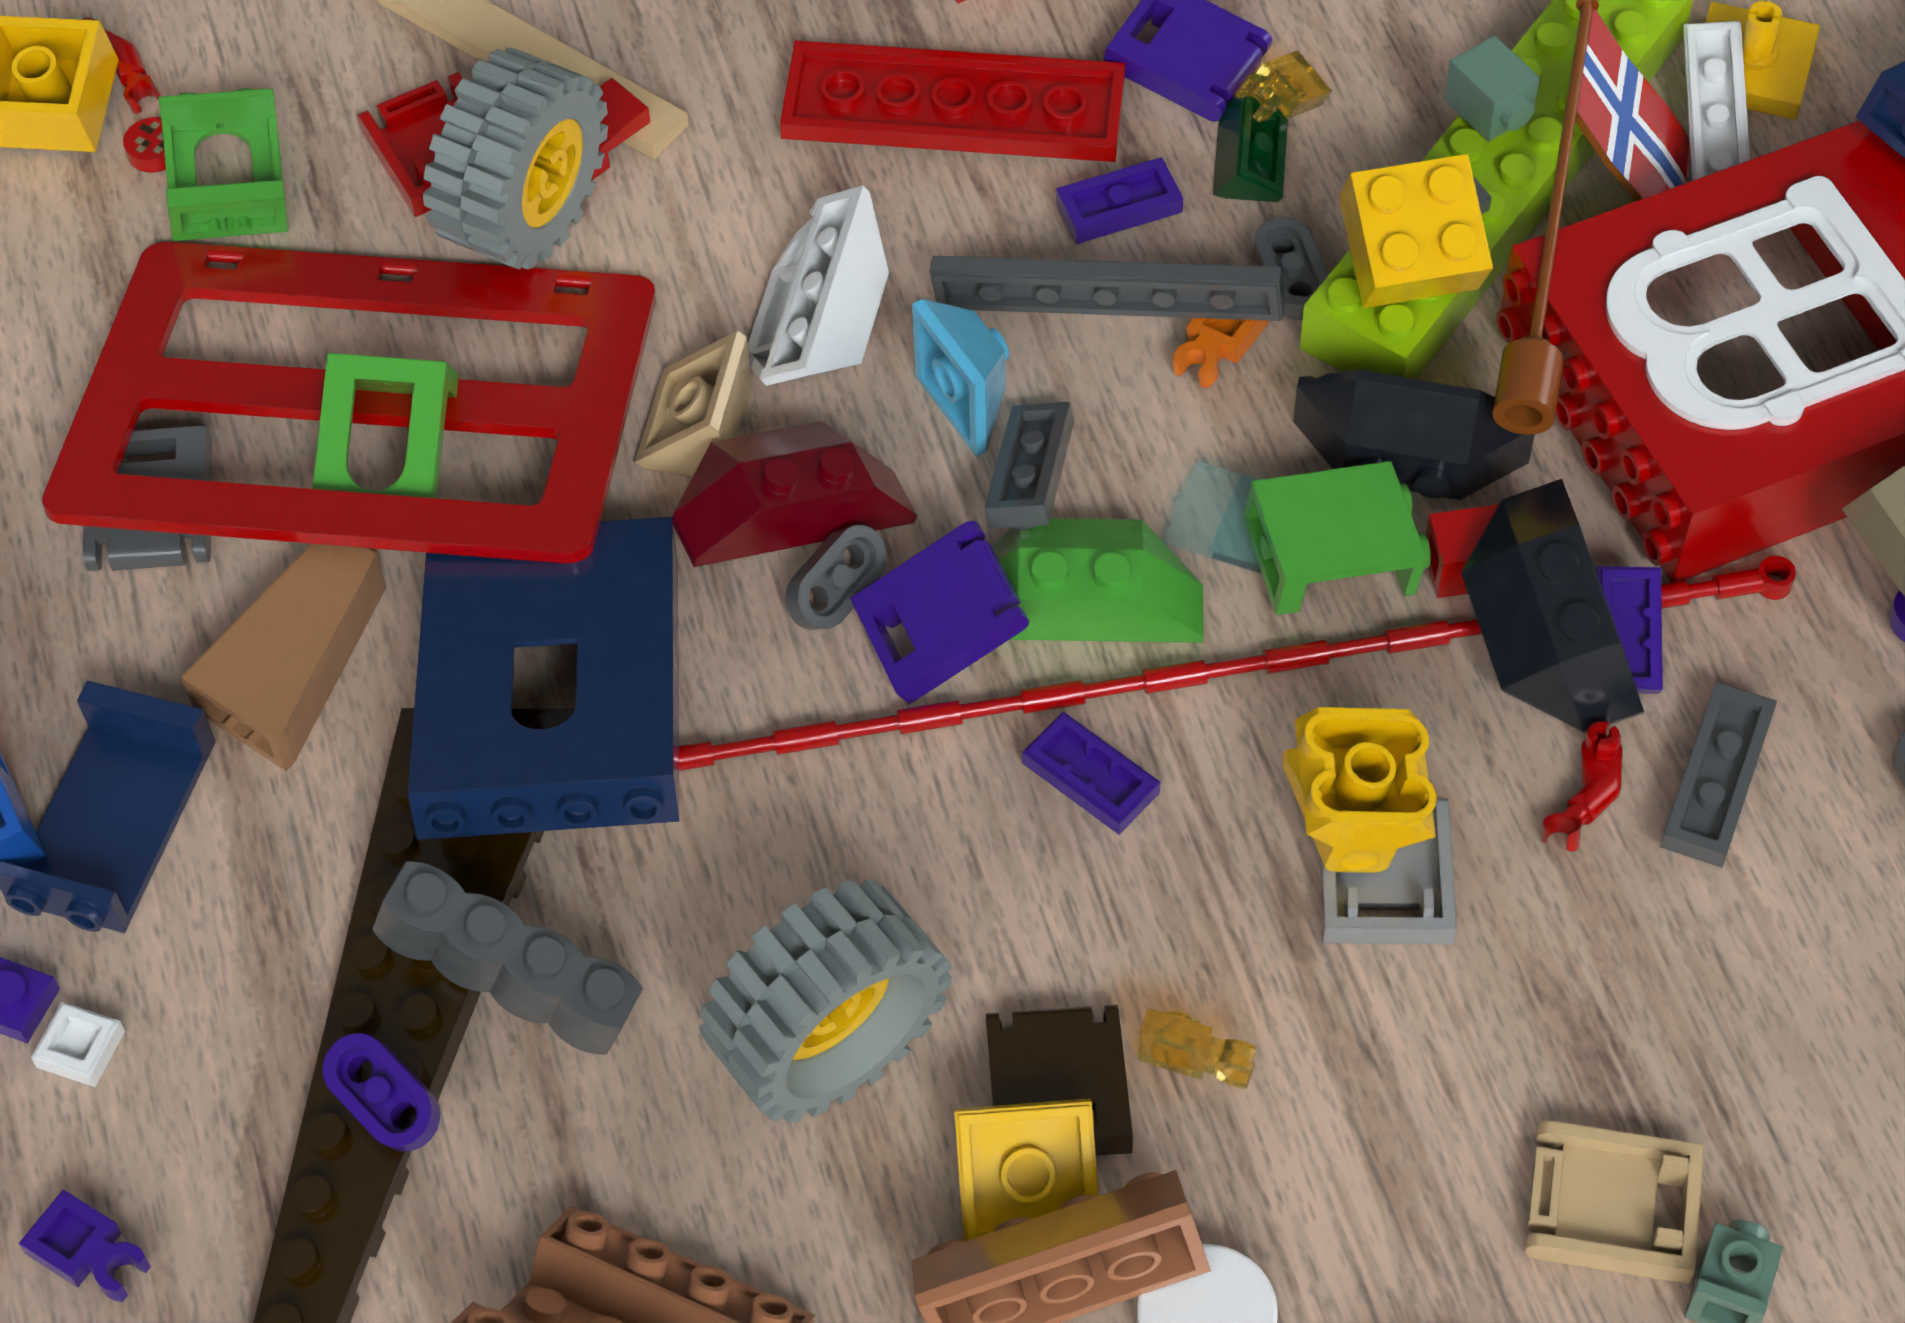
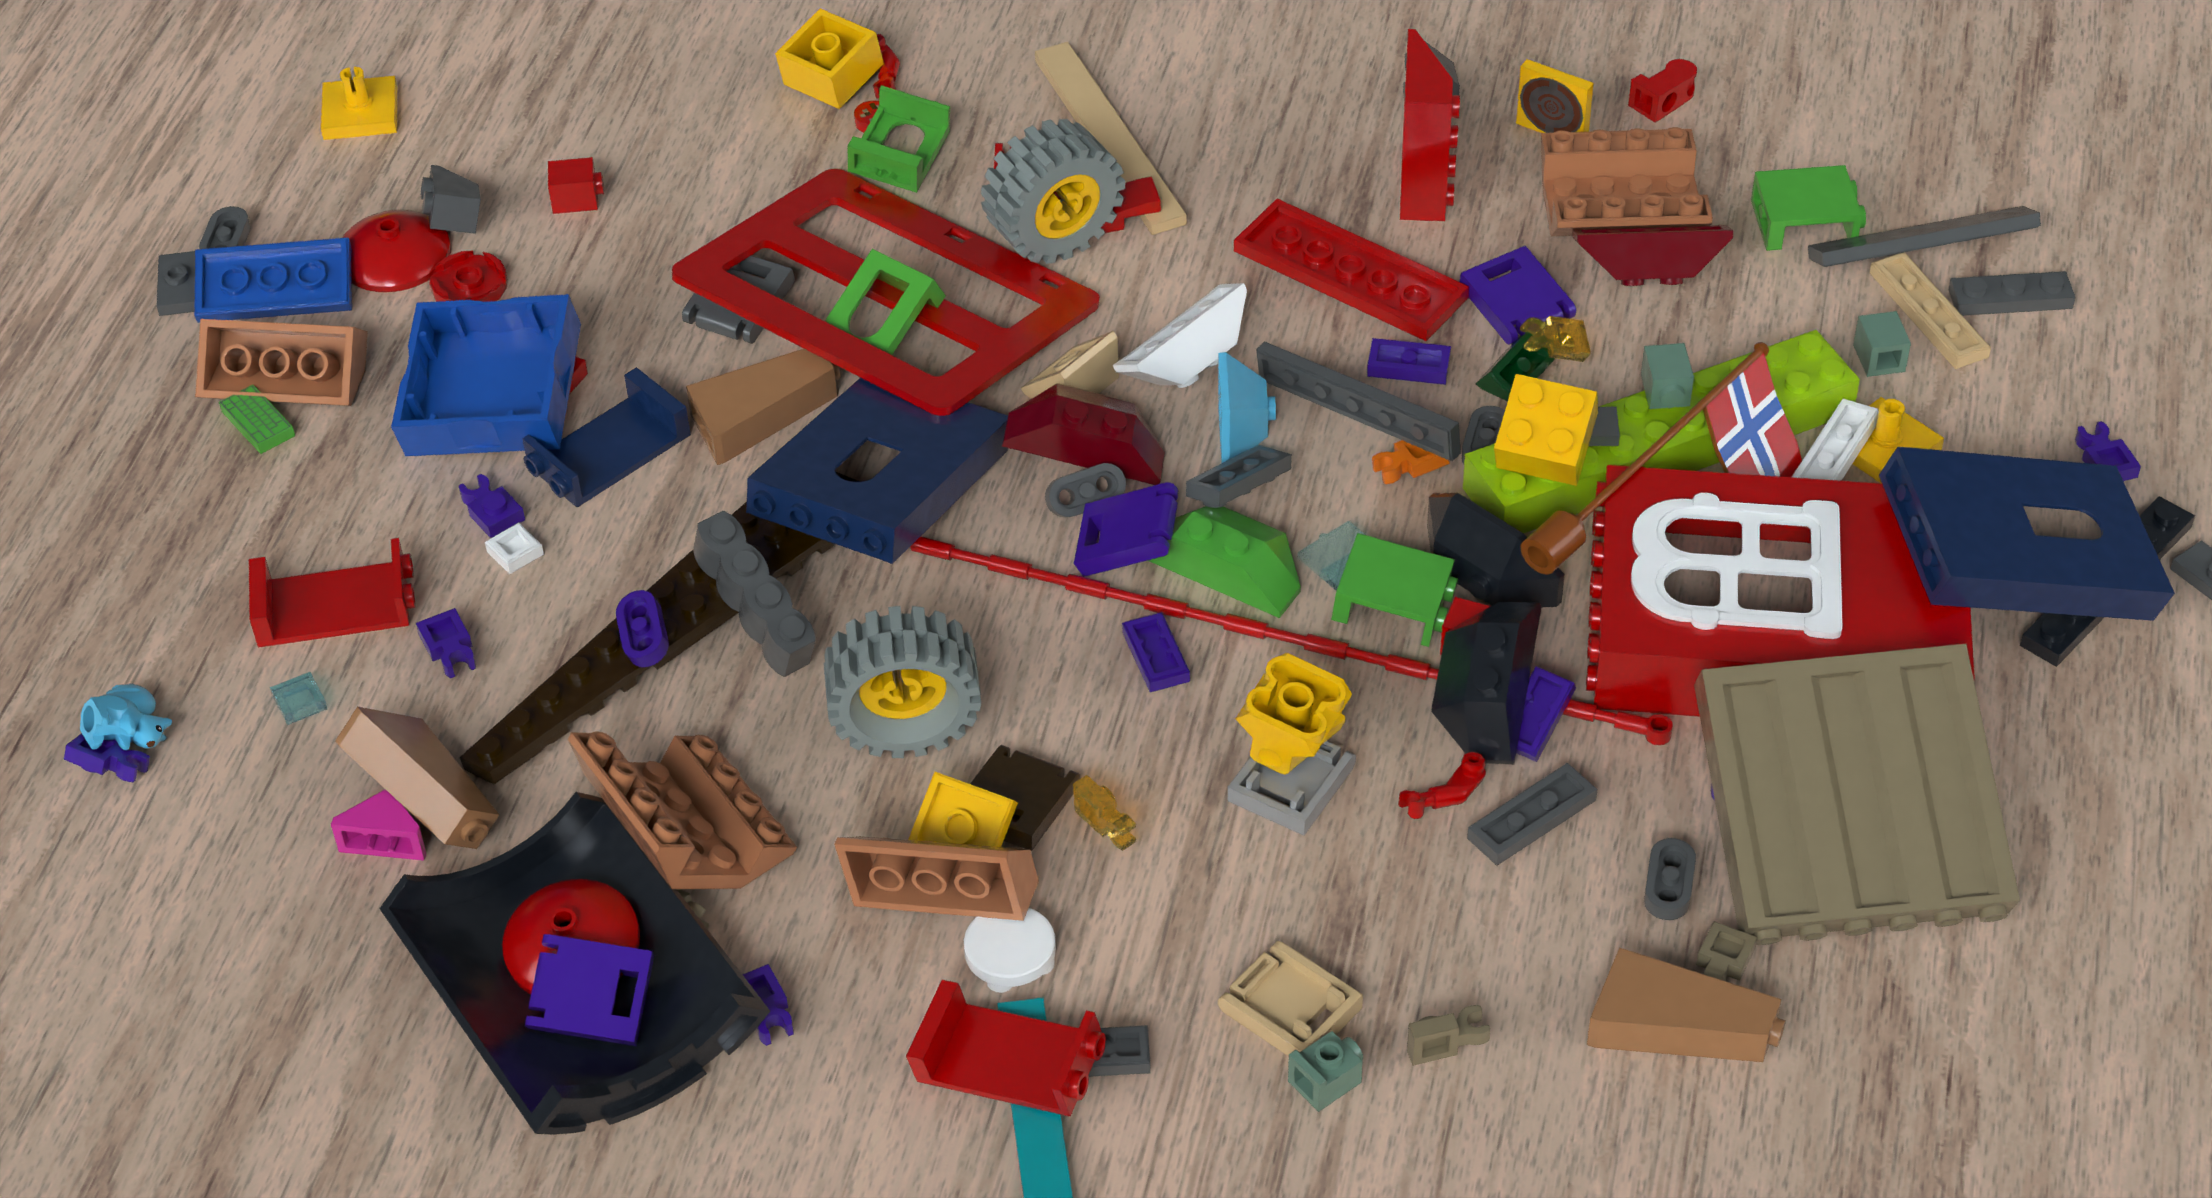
camera: 30 degrees right, 10 degrees down
(1833, 1157) = (1441, 1036): none -> dark tan plate

